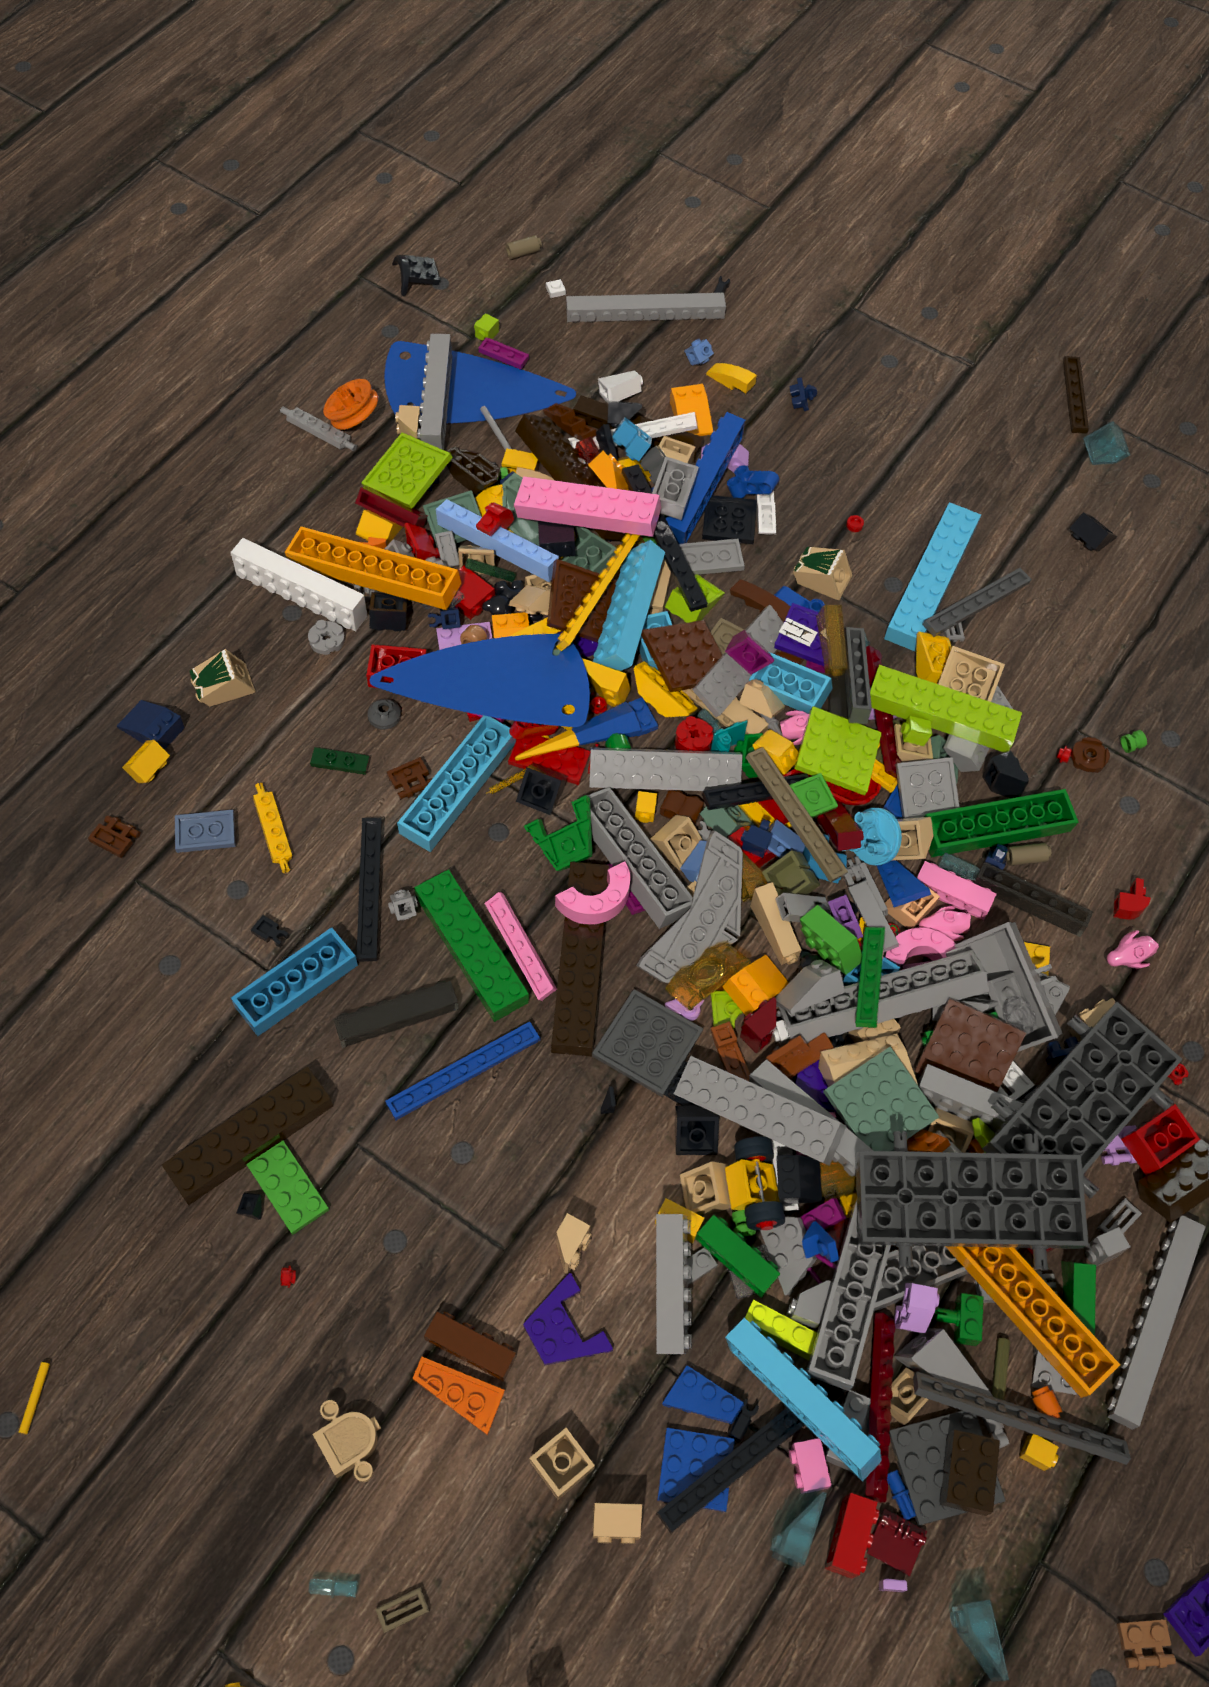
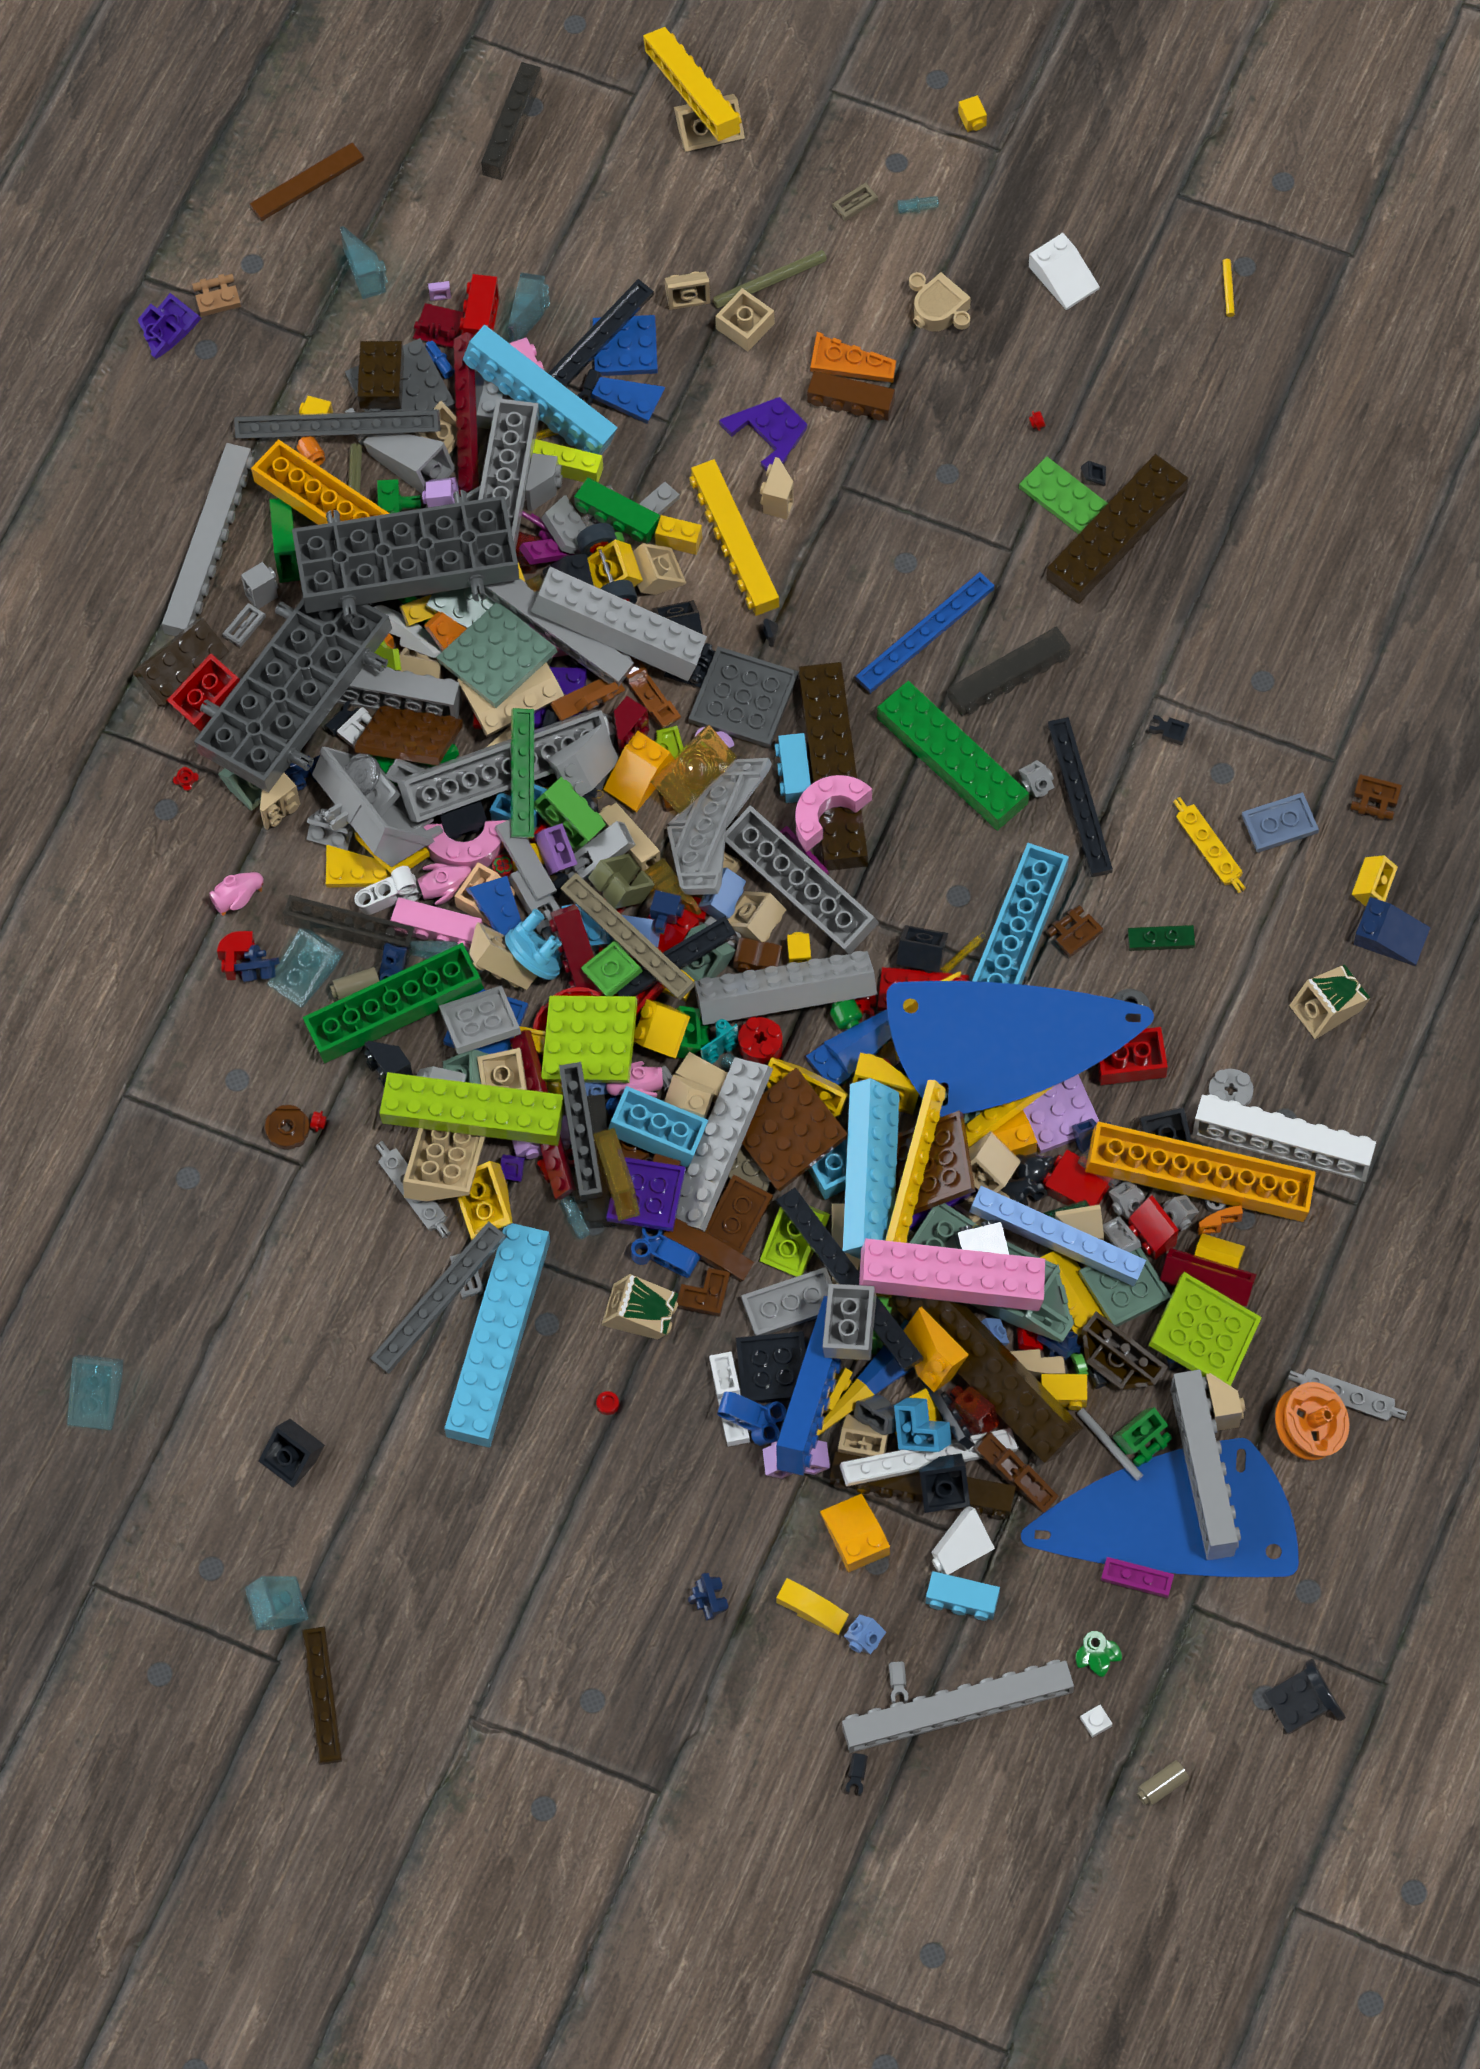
camera: 175 degrees right, 5 degrees up
(201, 1455) = (1063, 271): none -> white slope
(294, 981) = (1123, 677): dark azure brick -> none
(472, 634) = (1050, 1107): medium nougat head -> none
(474, 426) = (1139, 1432): none -> green brick
(486, 327) = (1173, 1613): lime brick -> none
(494, 517) = (1064, 1245): red brick -> none
(520, 946) = (900, 767): bright pink plate -> none
(521, 1522) = (772, 277): none -> olive axle
(543, 321) = (1097, 1657): none -> green plate
(569, 843) = (879, 879): green wing -> none
(616, 964) = (793, 766): none -> medium azure brick
(621, 361) = (962, 1596): none -> medium azure brick
(624, 1210) = (735, 537): none -> yellow brick
(672, 1284) = (674, 464): light grey brick -> none
(681, 330) = (898, 1680): none -> light grey bar
(734, 615) = (738, 1213): none -> reddish brown plate
(748, 652) = (711, 1129): magenta slope -> none
(771, 571) = (705, 1299): none -> reddish brown plate
(798, 632) = (659, 1188): white sticker -> none
(819, 1242) = (543, 521): blue slope -> none
(916, 730) = (502, 1075): lime brick -> none
(987, 919) = (402, 885): none -> white piece
(1070, 876) = (305, 966): none -> clear light blue slope
(1113, 881) = (266, 966): none -> dark blue hips
(1131, 742) = (232, 1157): bright green wheel -> none

